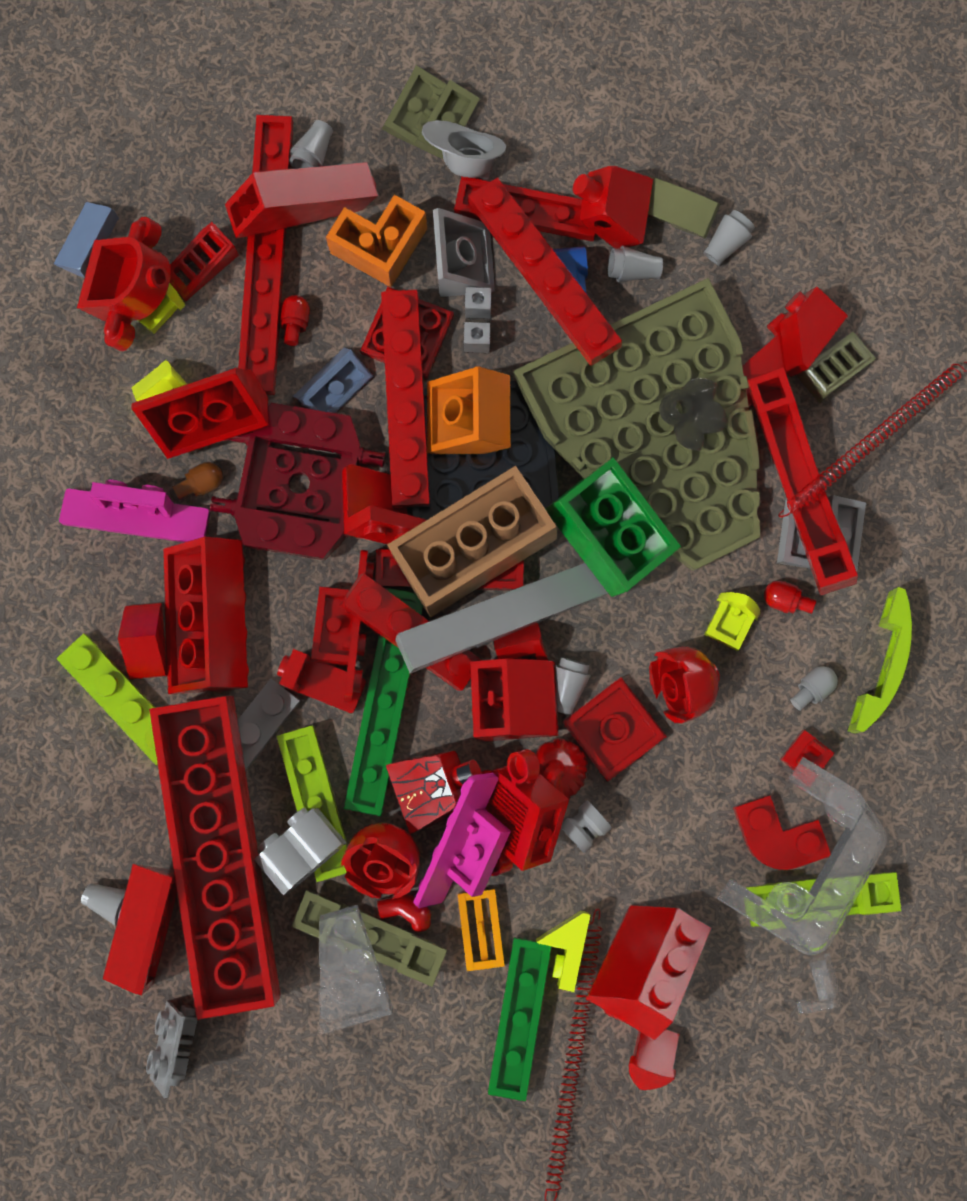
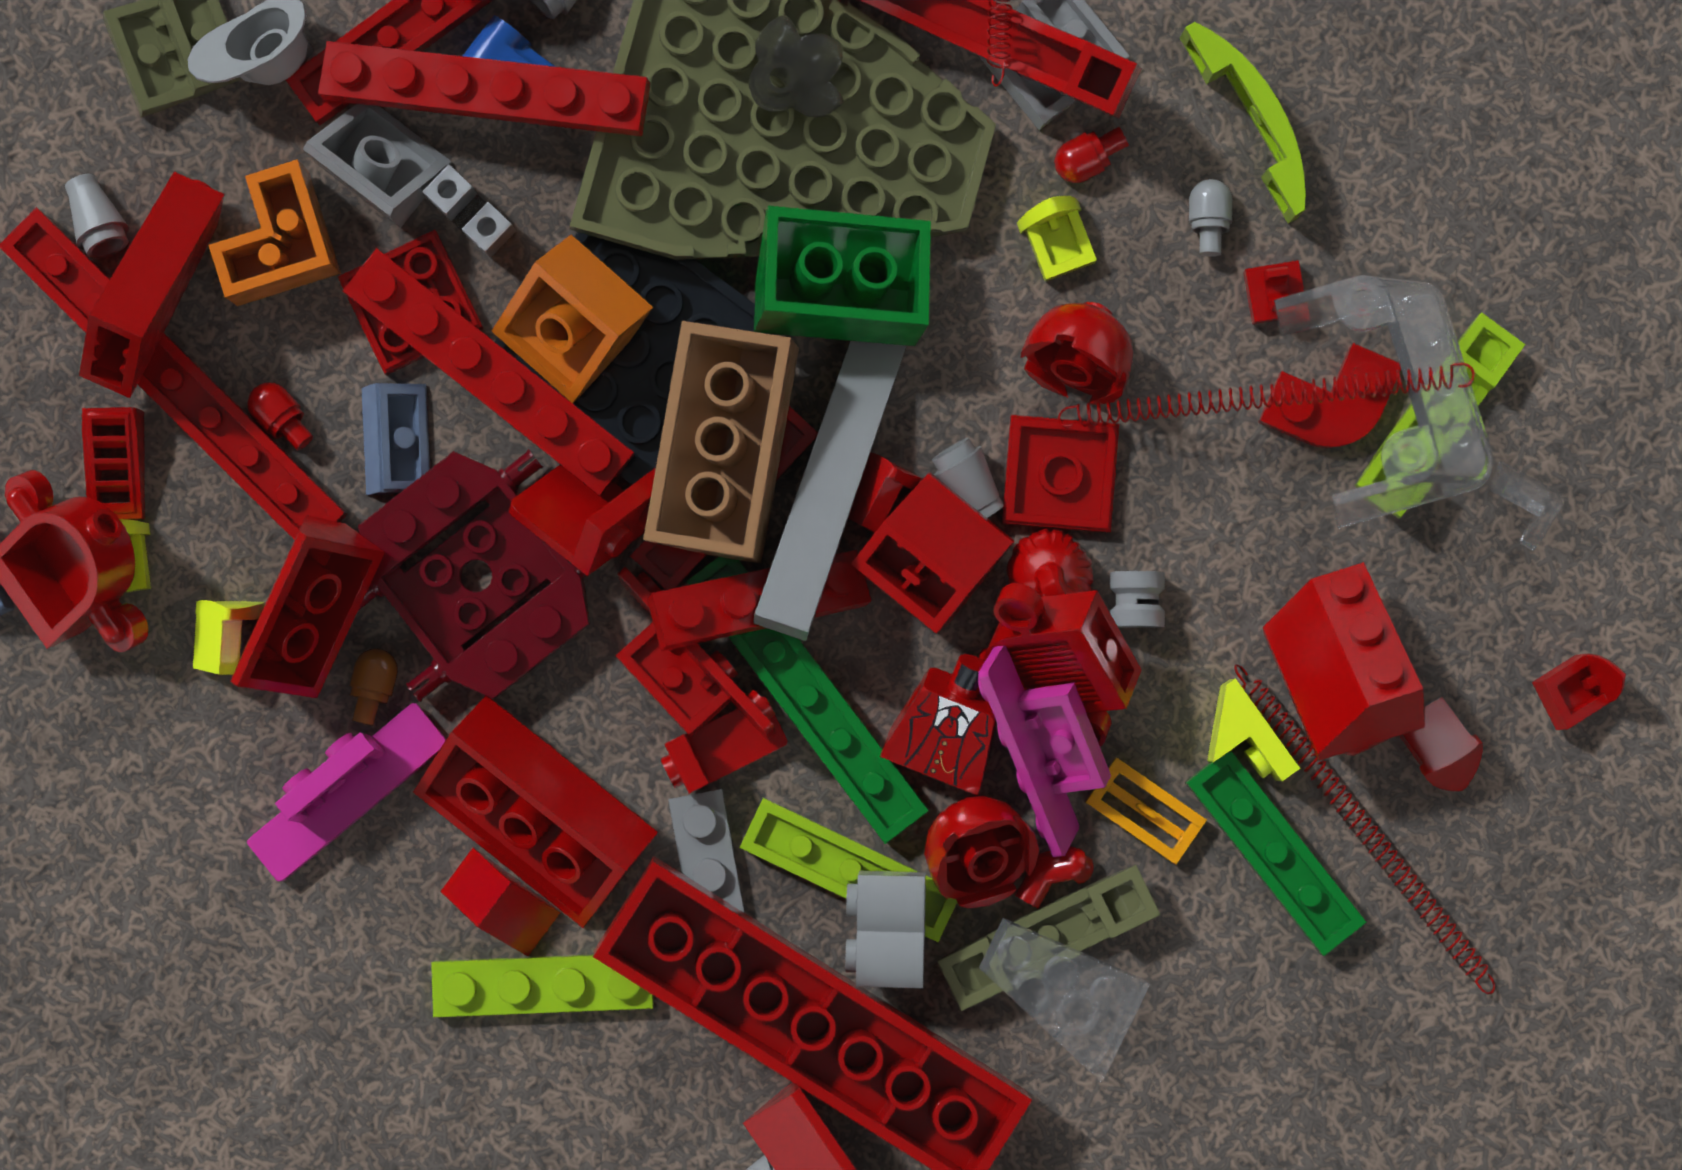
camera: 50 degrees left, 5 degrees up
(750, 1104) = (1579, 688): none -> red plate
(757, 807) = (1262, 398): none -> red piece

